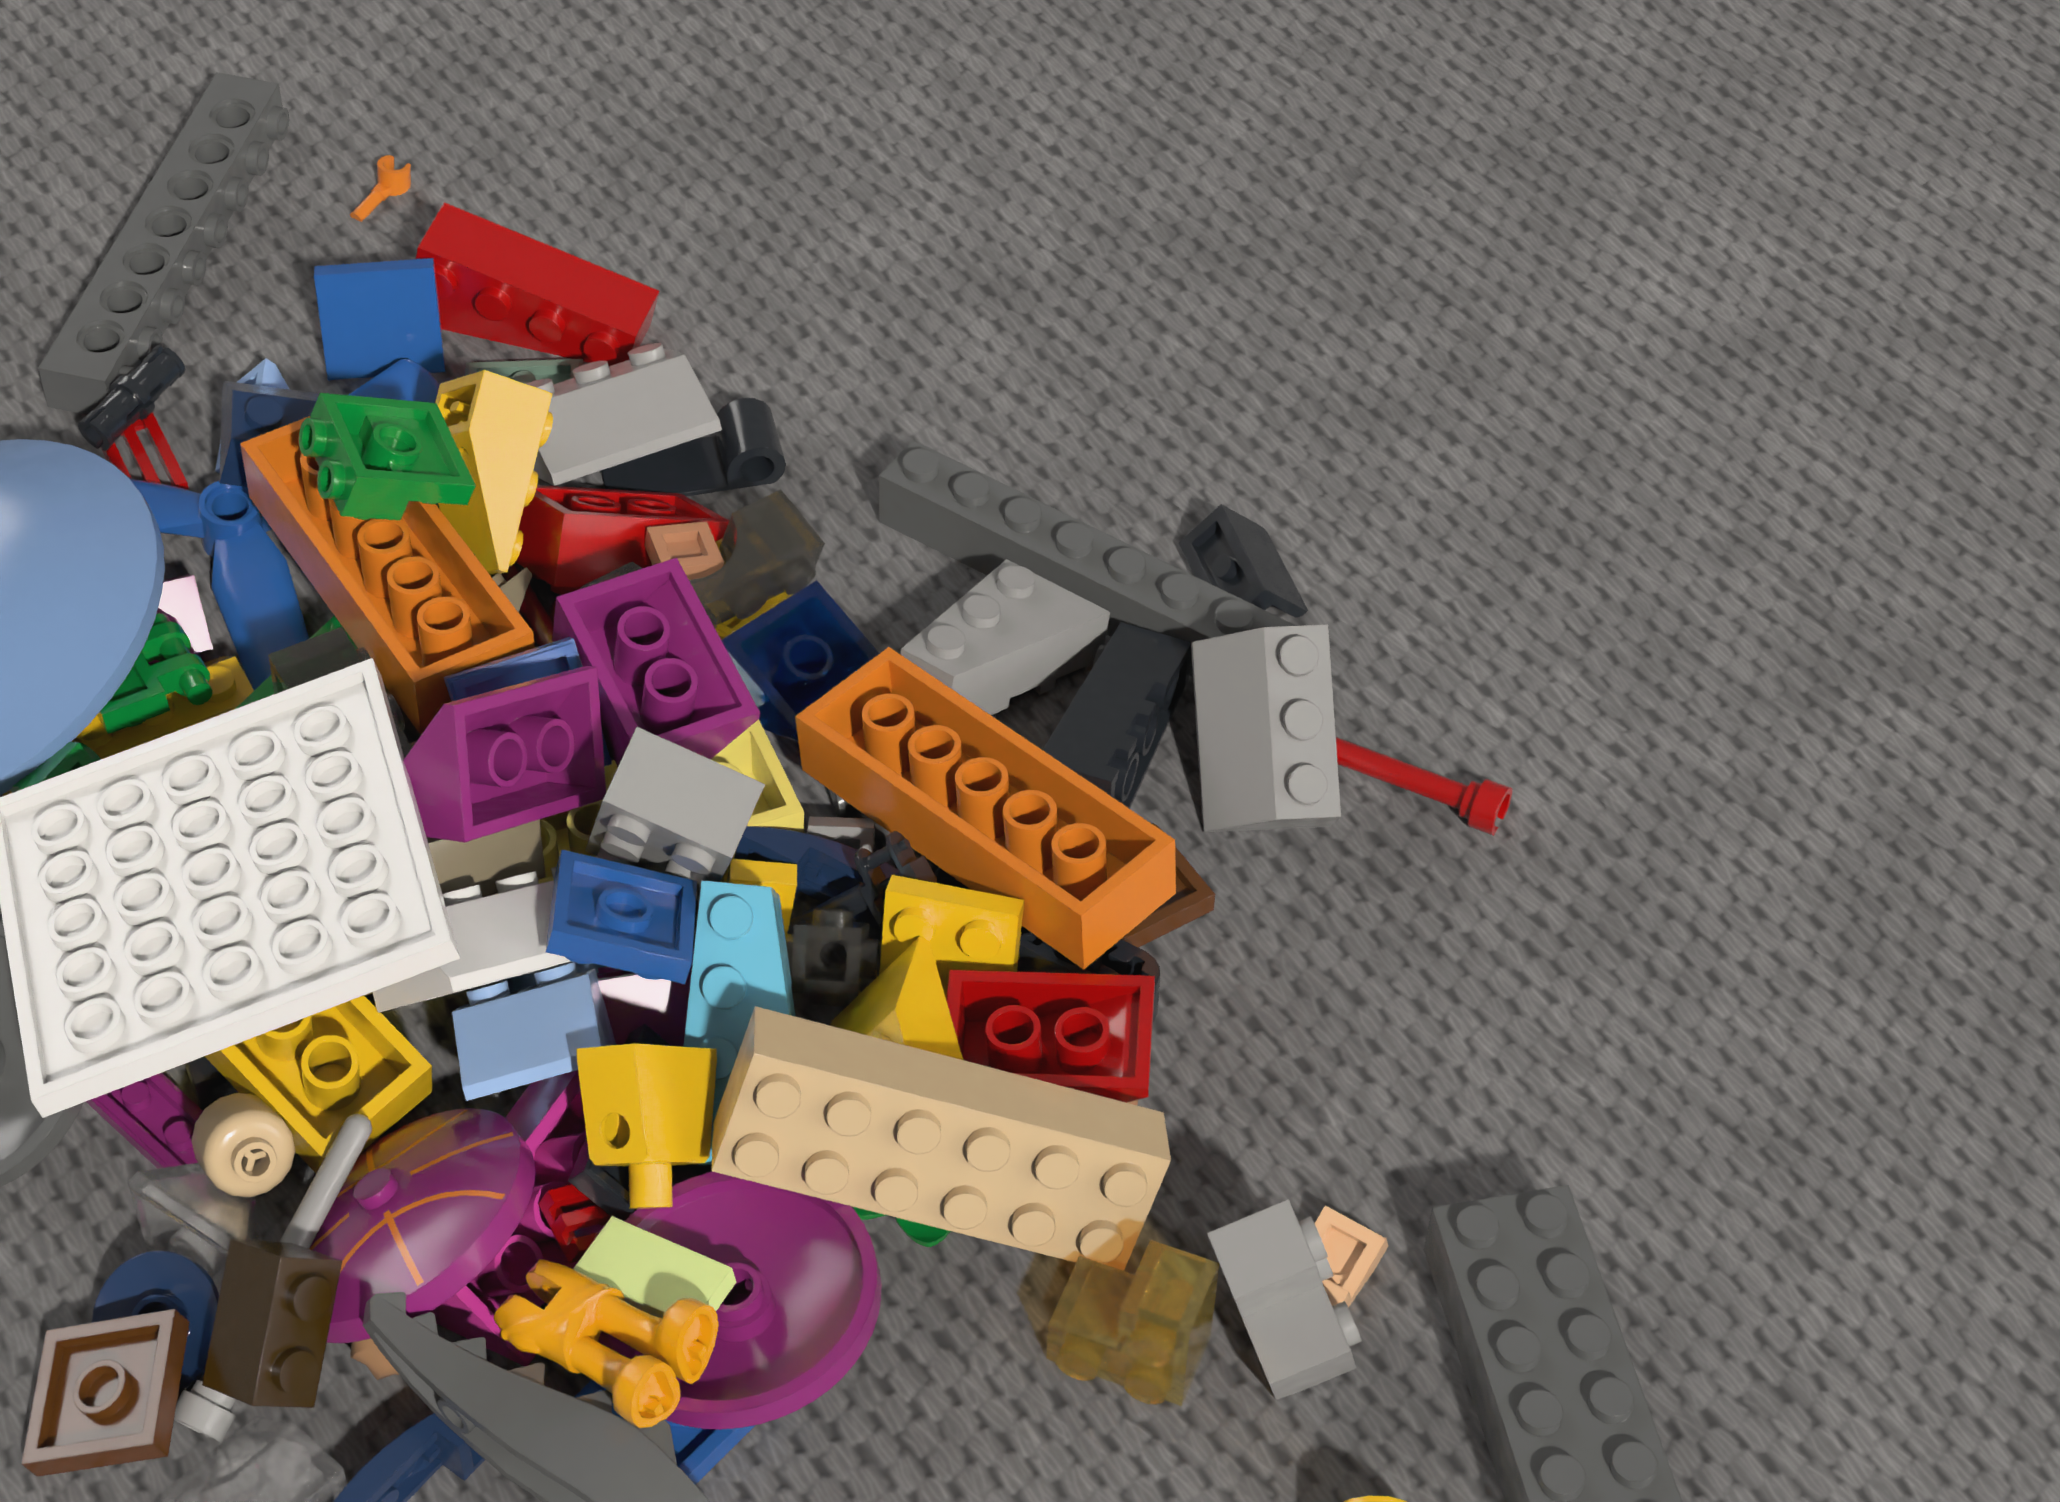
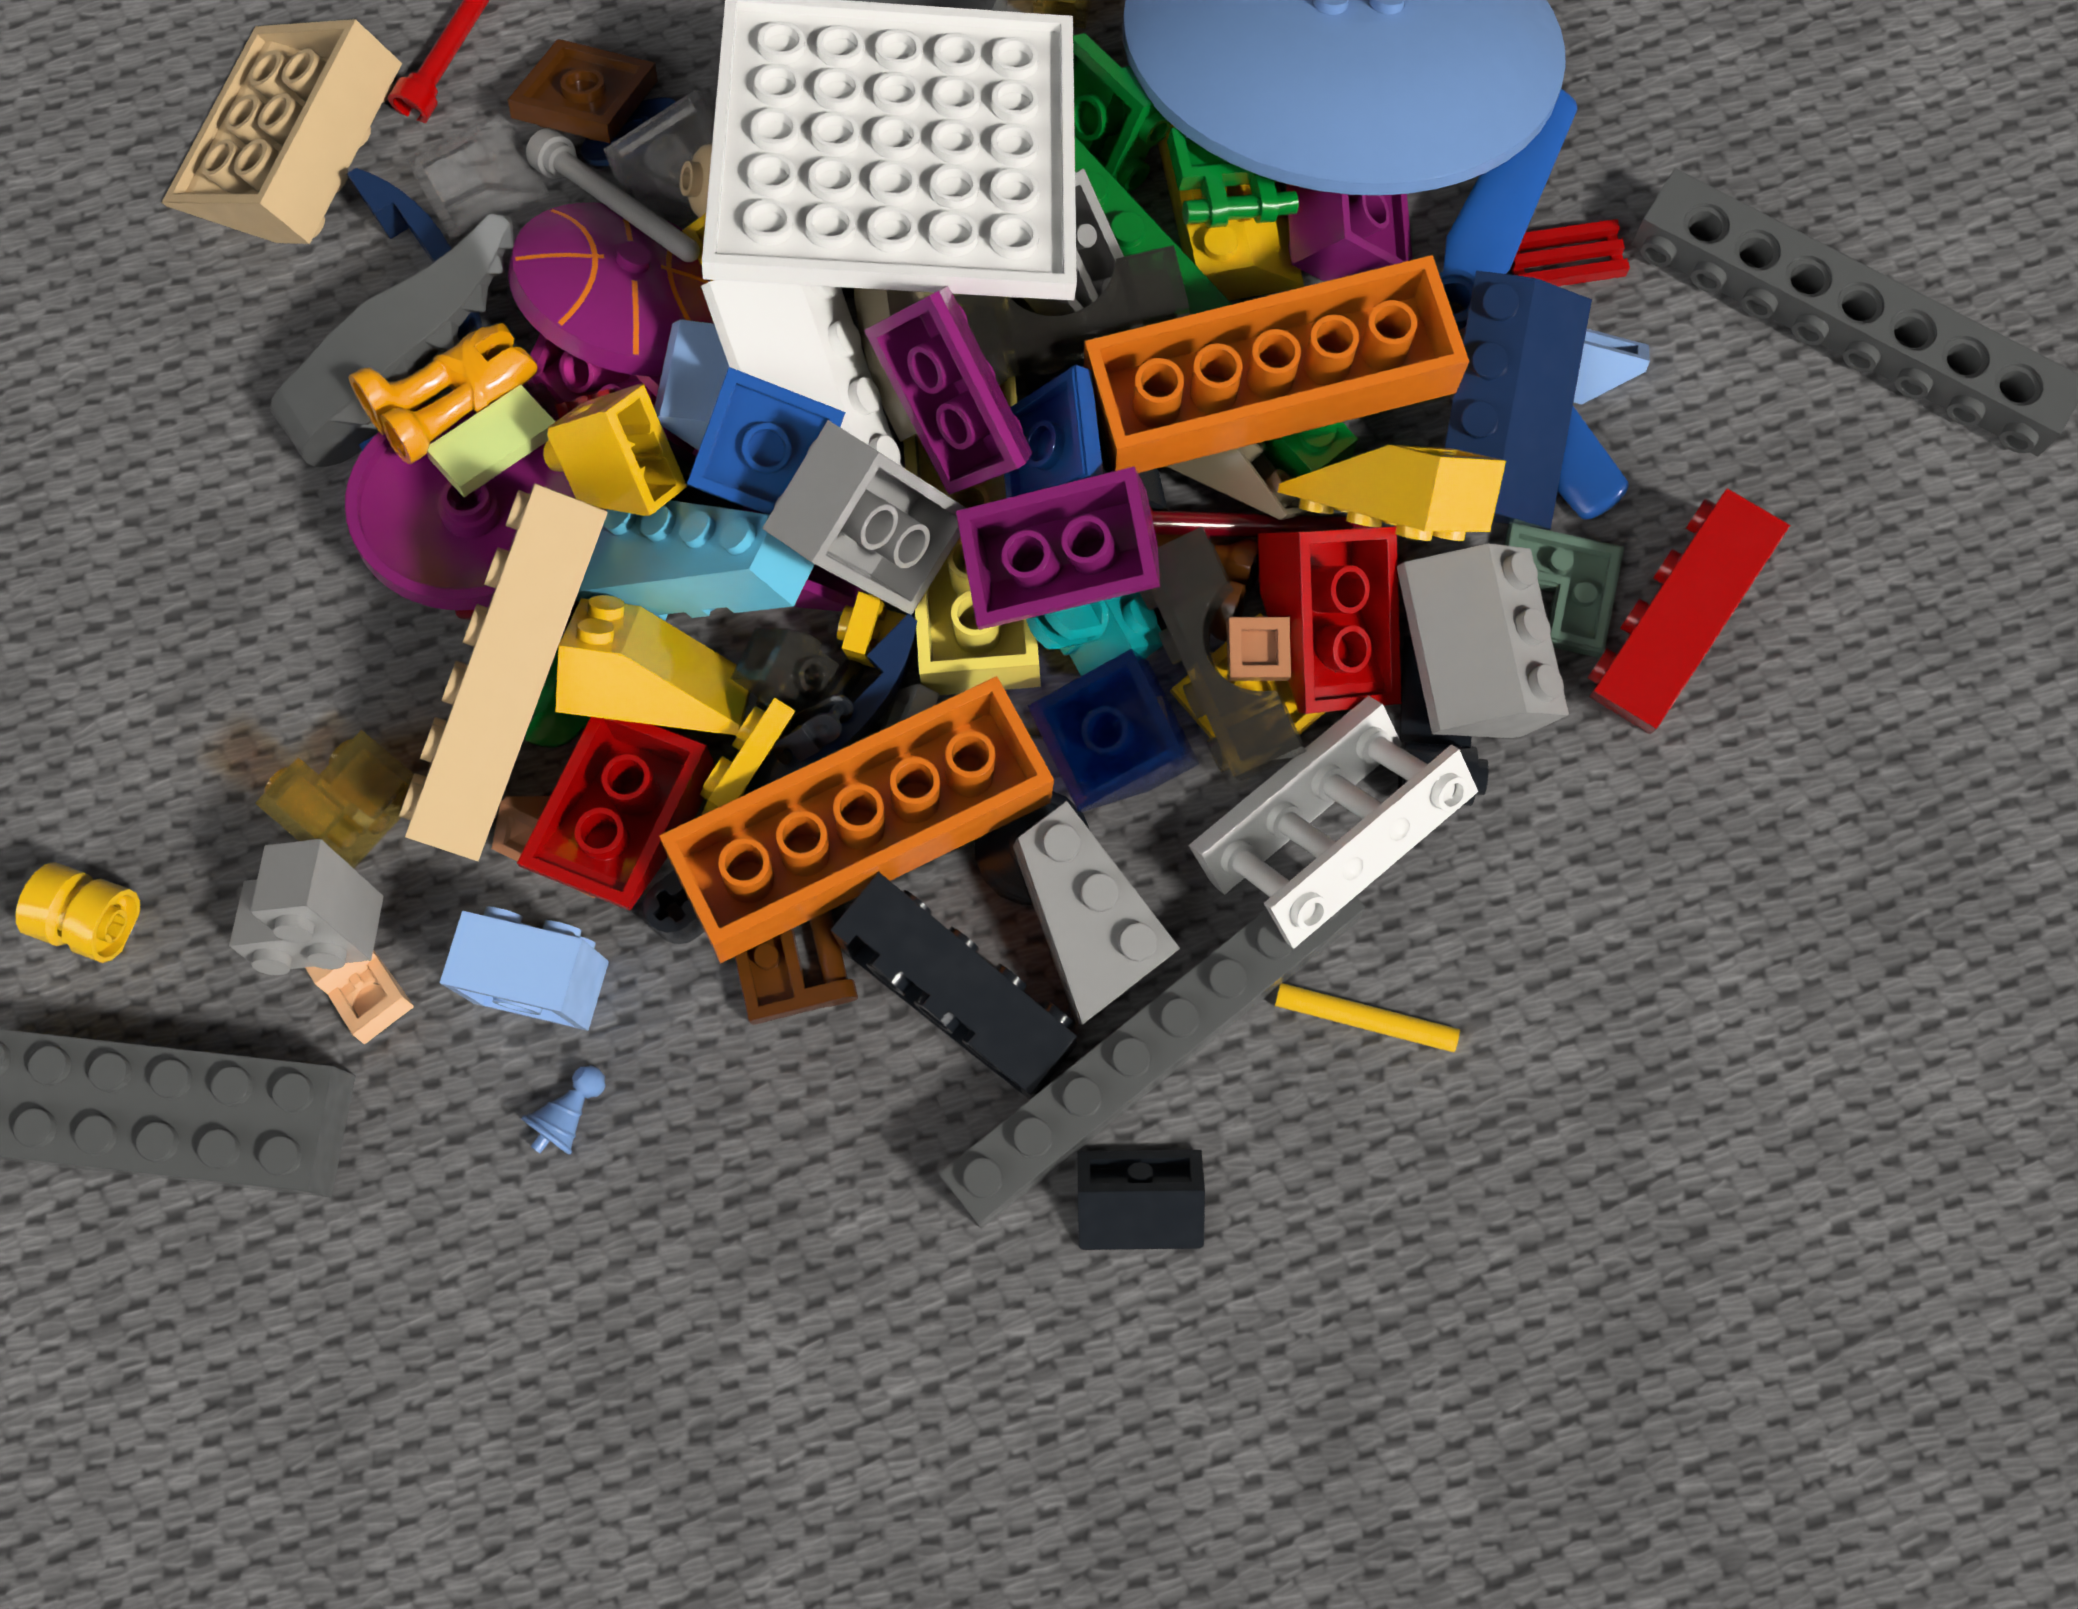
camera: 115 degrees right, 25 degrees up
(131, 398) = (1625, 244): black pin -> none
(272, 1323) = (555, 176): dark brown brick -> none
(378, 316) = (1674, 462): blue tile -> none
(383, 455) = (1353, 354): green plate -> none
(389, 183) = (1908, 527): orange hand -> none
(890, 561) = (1305, 789): none -> white fence
(1002, 437) = (1367, 1017): none -> yellow bar
(1250, 1073) = (525, 968): none -> light blue brick
(1266, 729) = (890, 1122): light grey slope -> none
(1383, 1038) = (560, 1118): none -> medium blue piece
(1475, 801) = (781, 1313): red piece -> none

